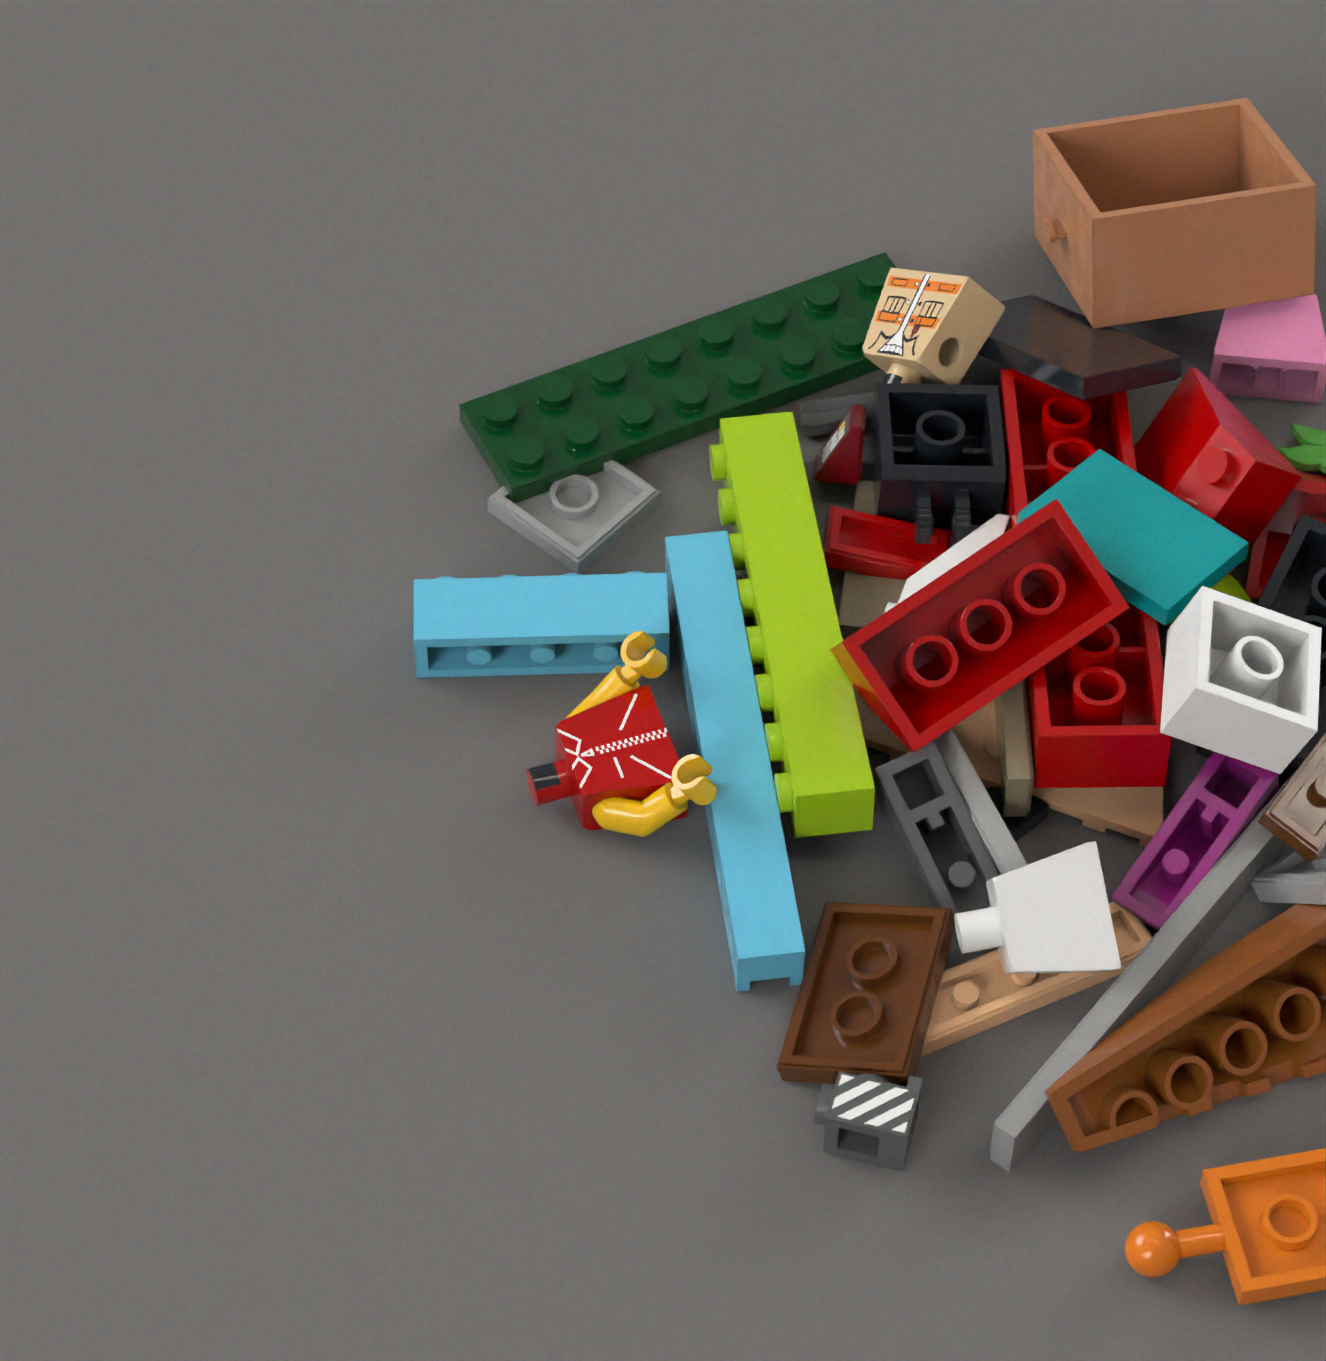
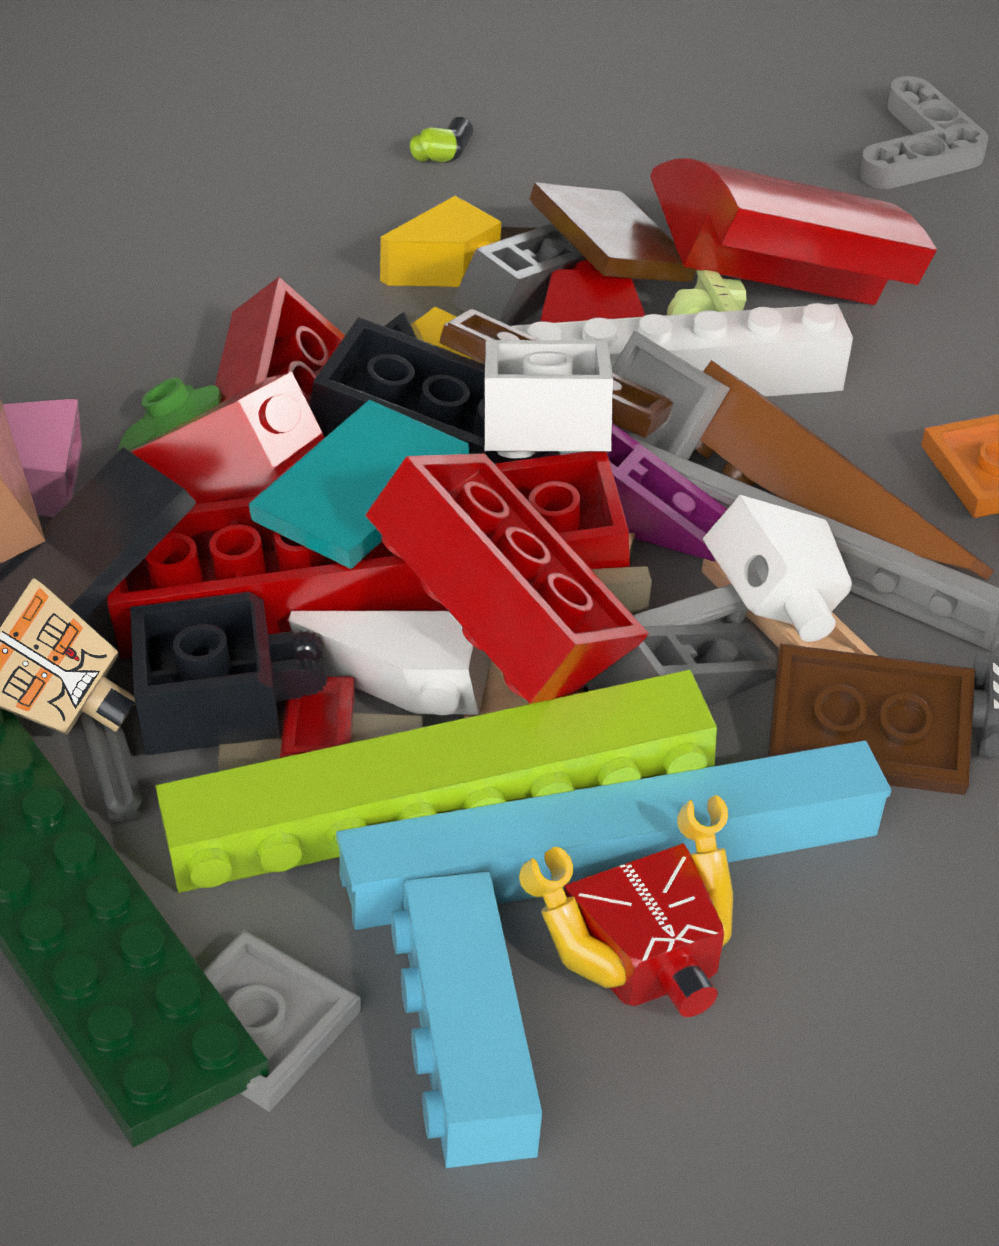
camera: 100 degrees left, 10 degrees down
(843, 452) = (182, 749): dark red slope -> none

